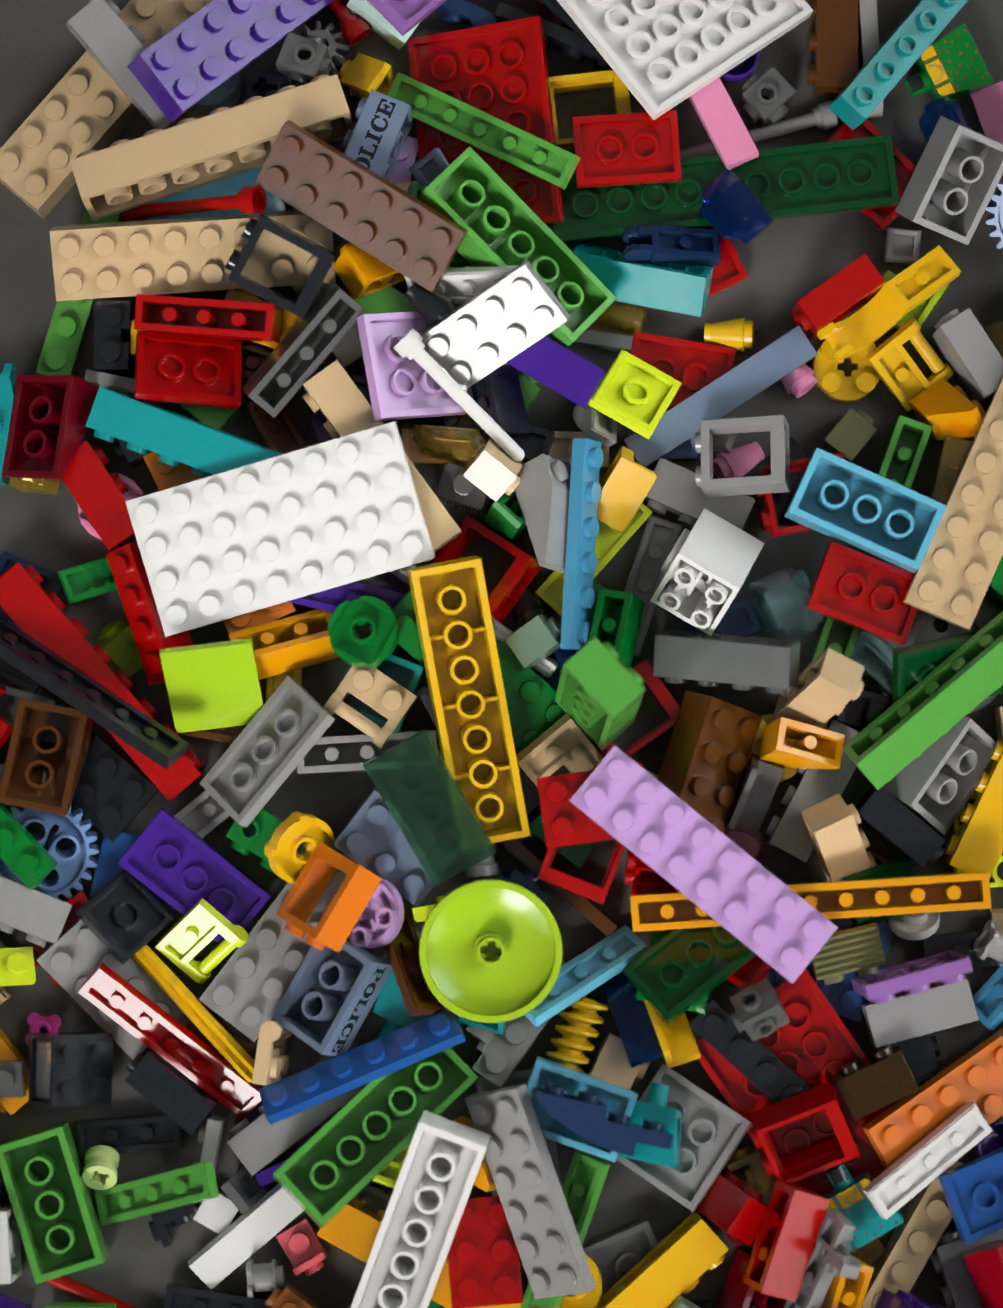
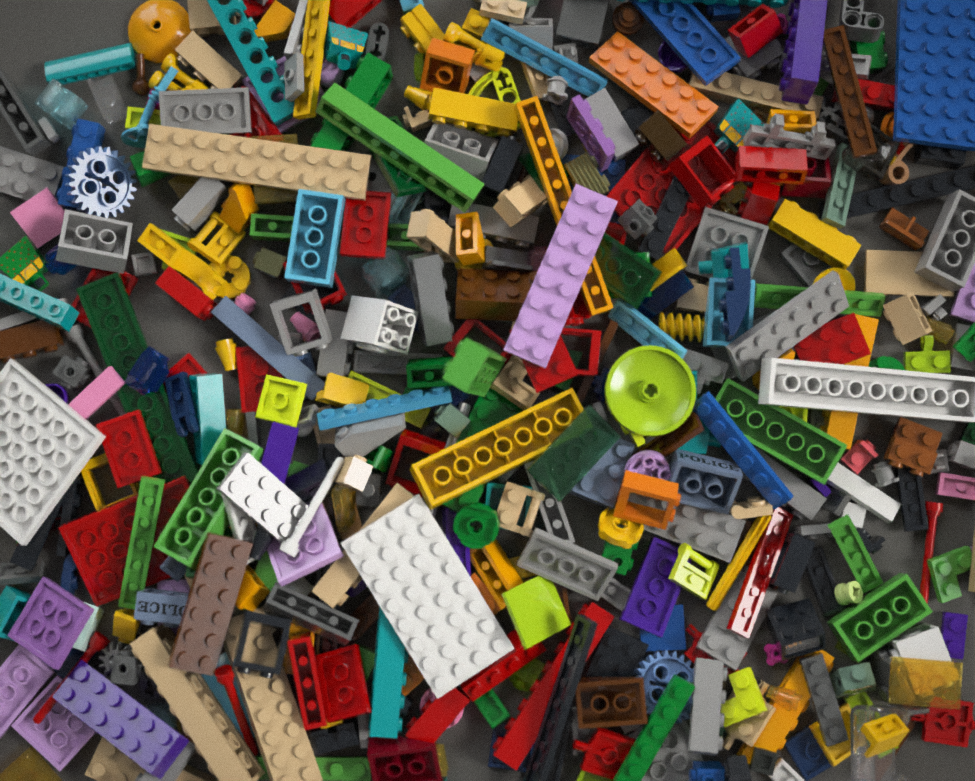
camera: 100 degrees left, 0 degrees up
(124, 916) = (693, 623): black tile -> none
(927, 1160) = (697, 94): white tile -> none

